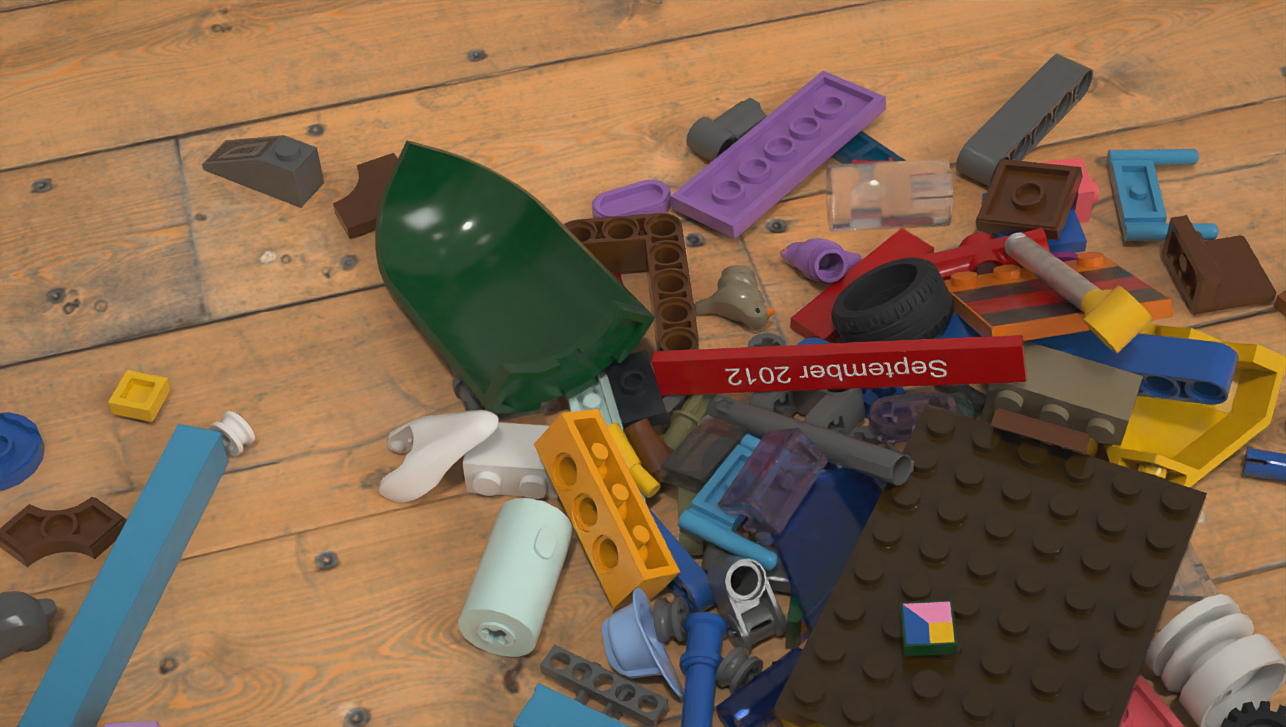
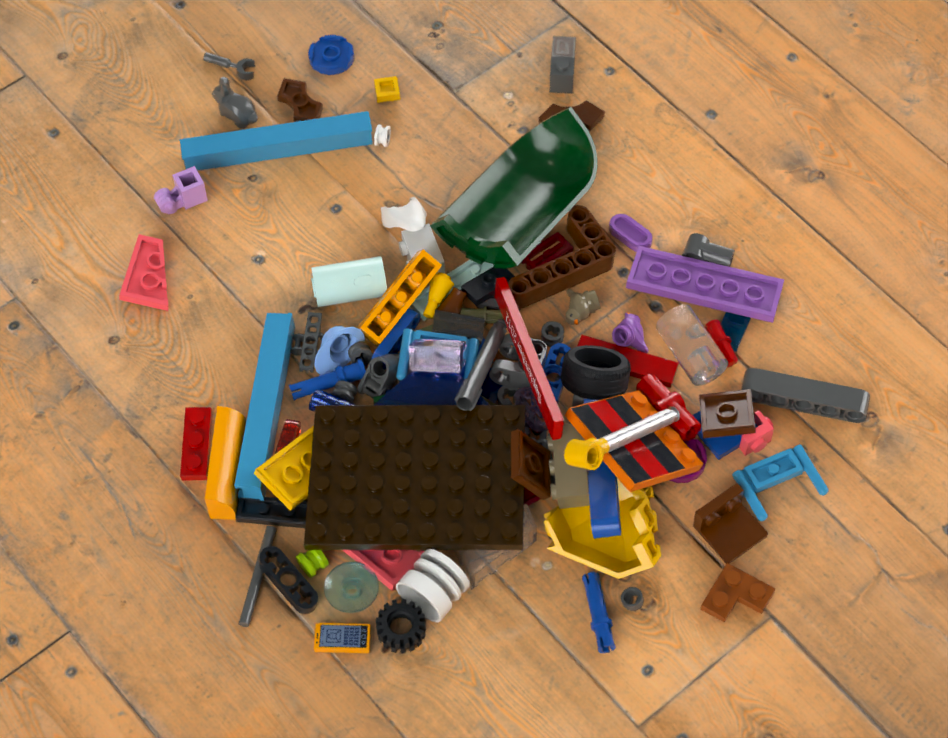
camera: 65 degrees right, 10 degrees up
(928, 627) = (377, 446): tile -> none

